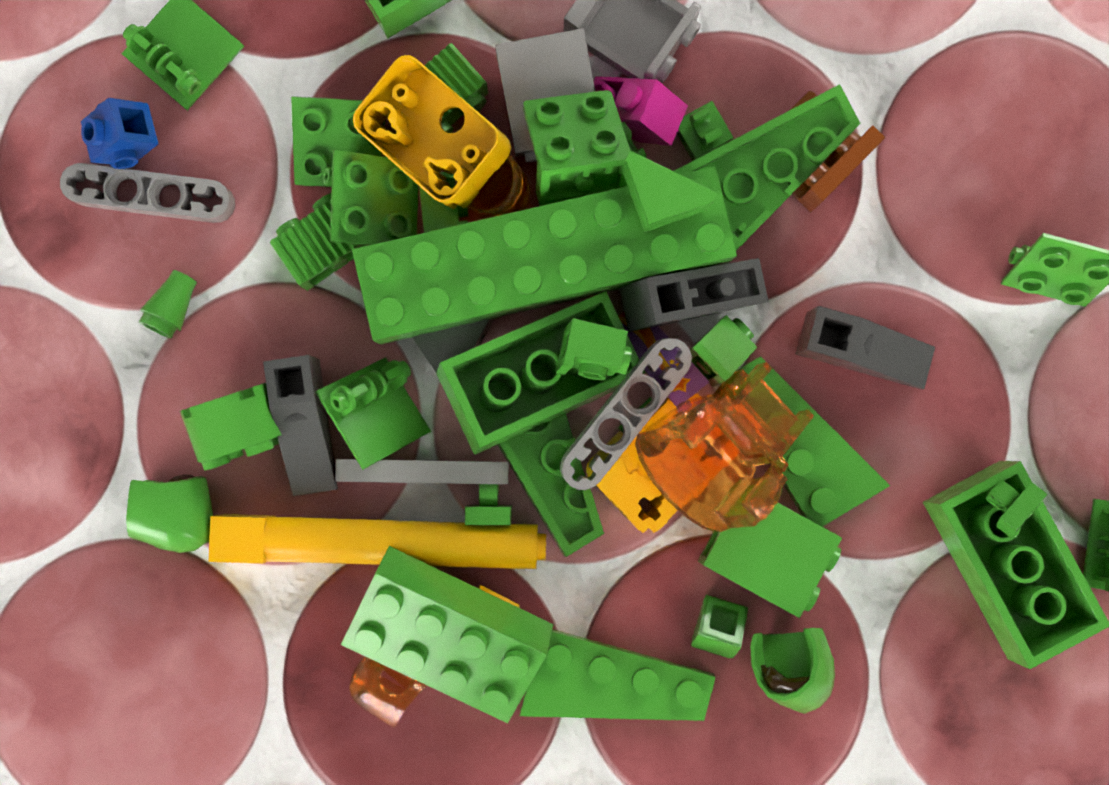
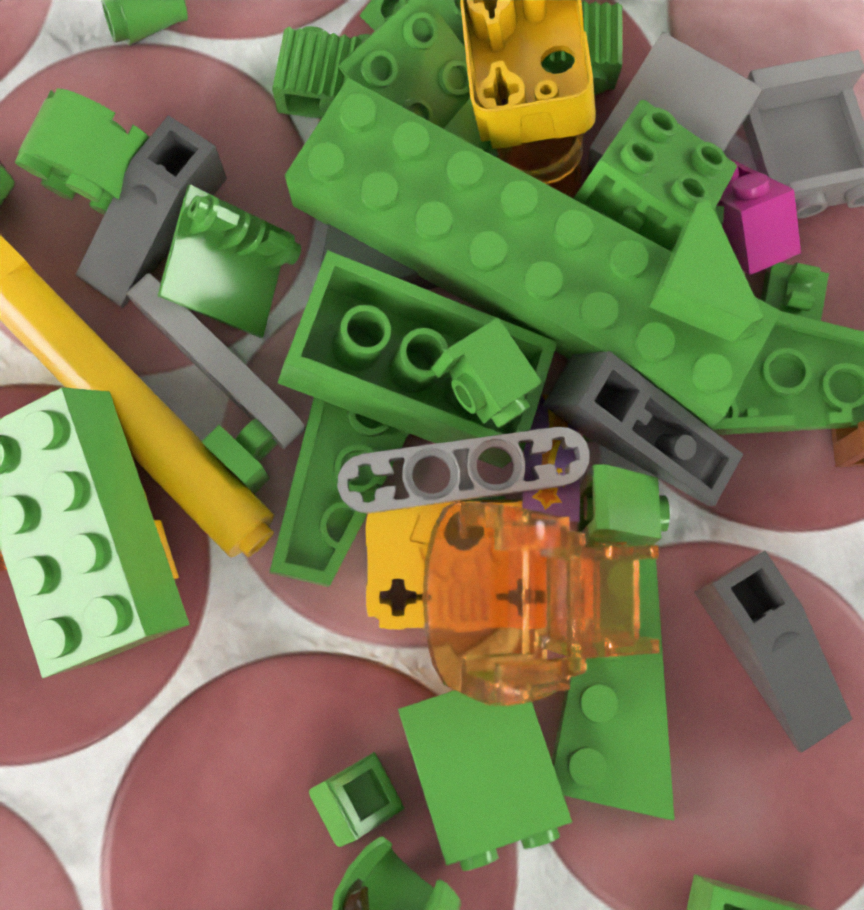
camera: 40 degrees right, 10 degrees down
(614, 683) = (186, 742): bright green wing -> none

